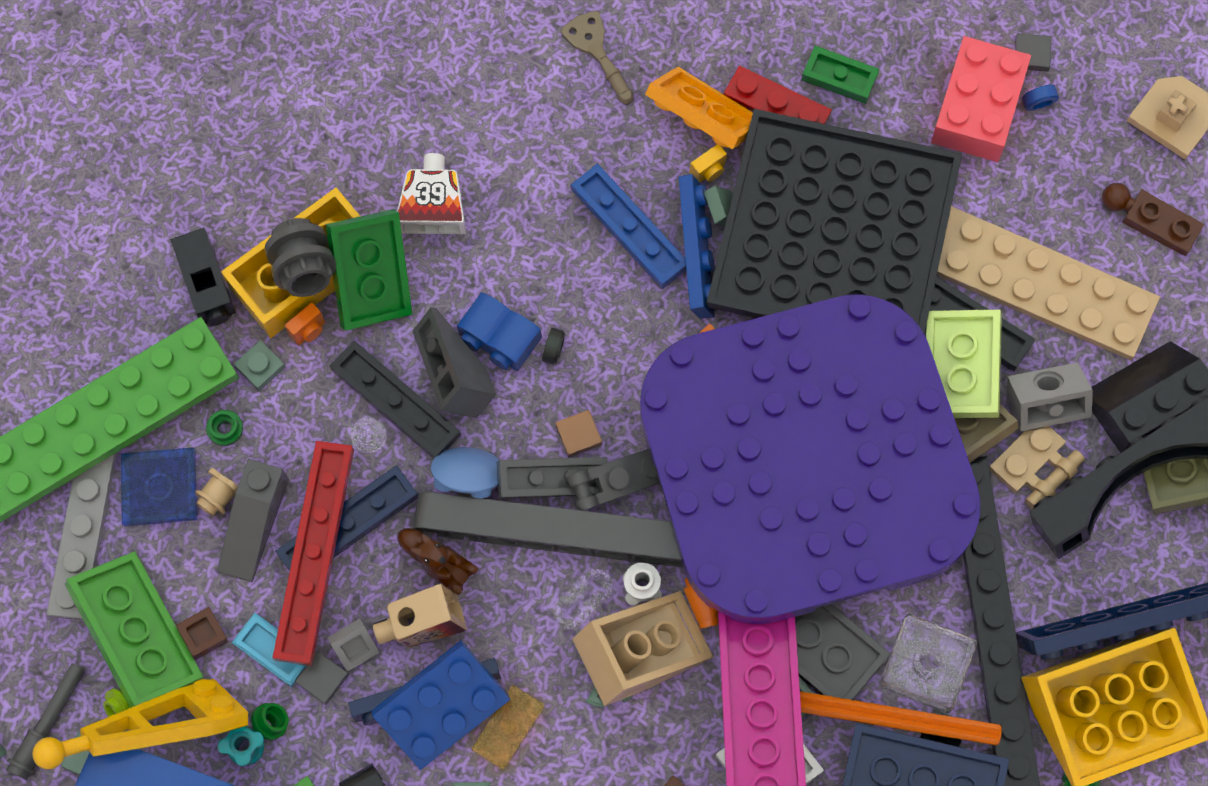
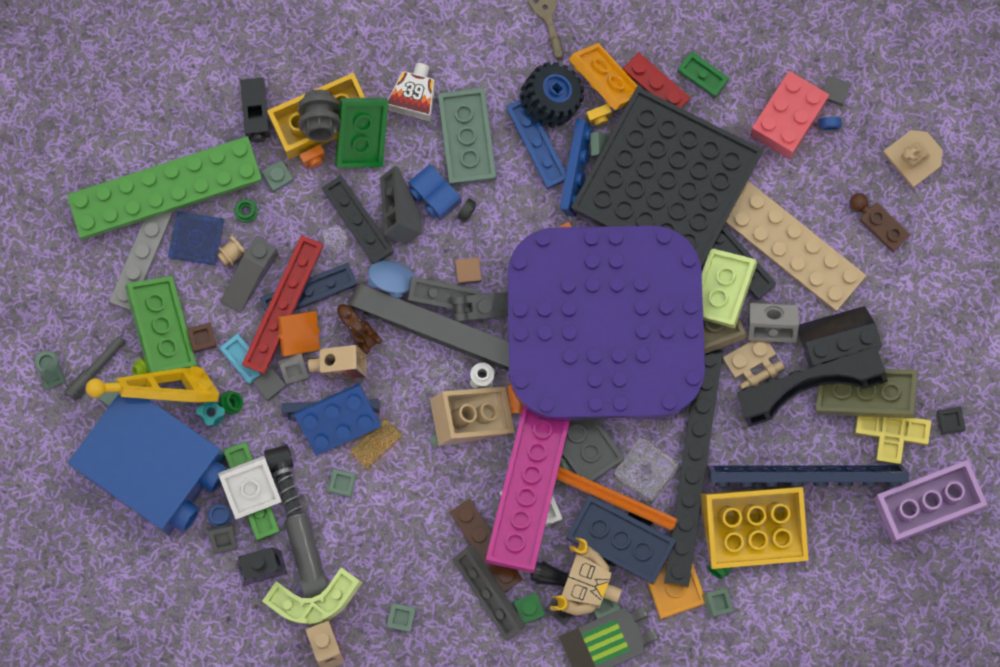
camera: 15 degrees right, 5 degrees up
(348, 589) = (299, 333): none -> orange piece
(525, 241) = (467, 136): none -> sand green plate
(633, 150) = (552, 94): none -> black wheel

